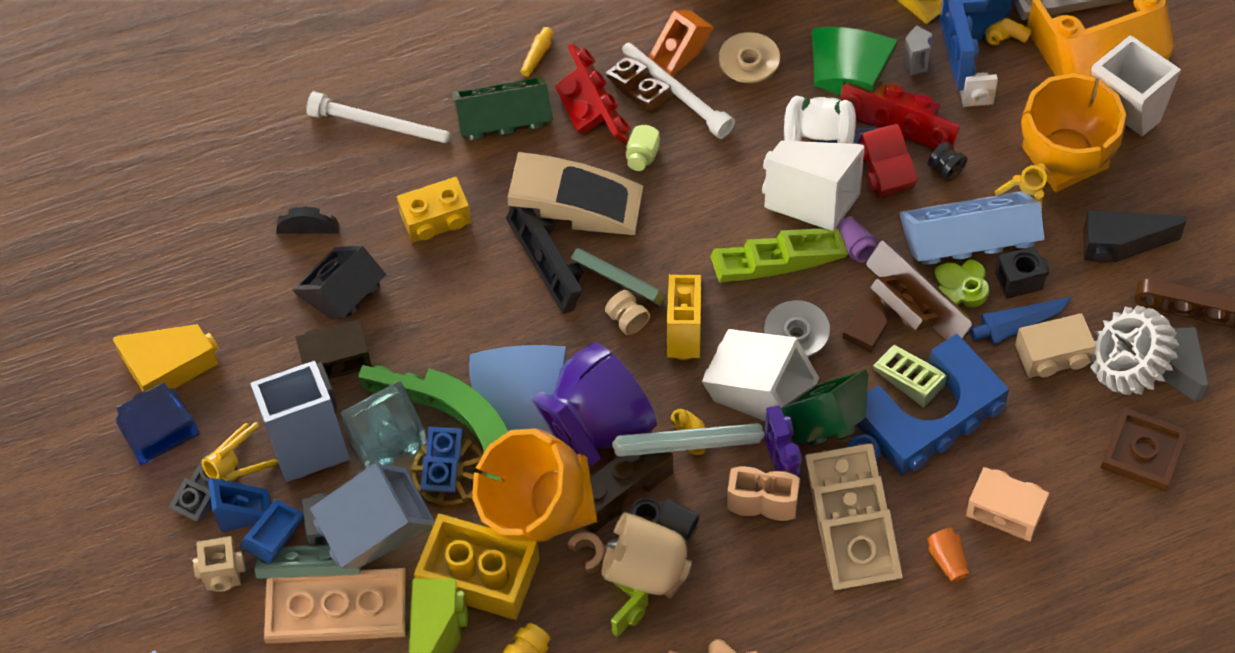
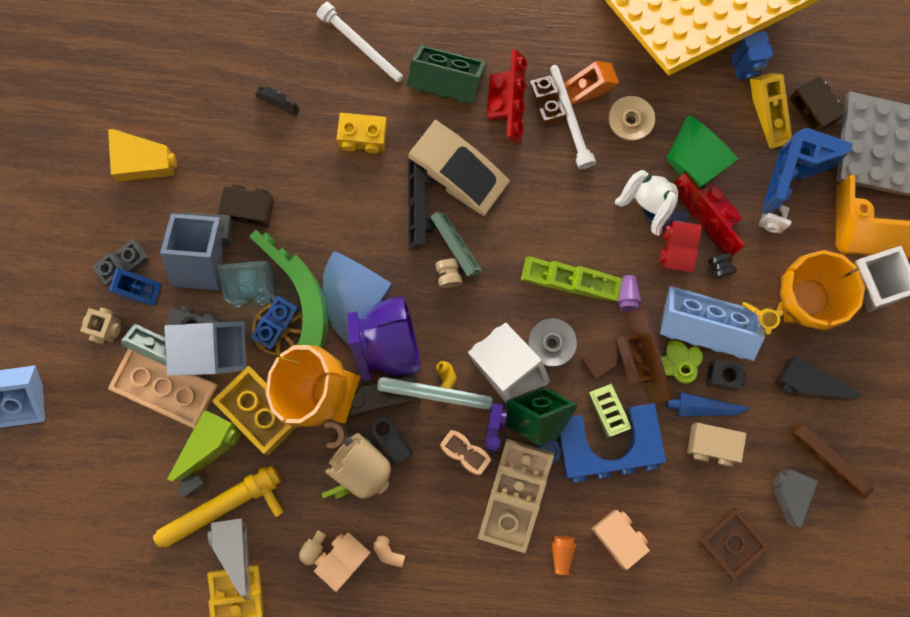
camera: 20 degrees right, 20 degrees up
(155, 423) = (110, 201): clear blue torso -> none
(223, 460) = (134, 253): yellow plant -> none
(272, 531) = (145, 318): blue tile -> none
(341, 281) = (275, 156): black slope -> none
(537, 51) = (494, 39): yellow animal -> none
(642, 147) = (523, 152): yellowish green arm -> none
(684, 316) = (484, 293): yellow slope -> none
(813, 180) = (621, 240): white slope -> none
(917, 51) = (749, 170): light grey piece -> none
(1004, 29) = (820, 181): yellow arm -> none
(1151, 341) = (746, 476): white gear -> none

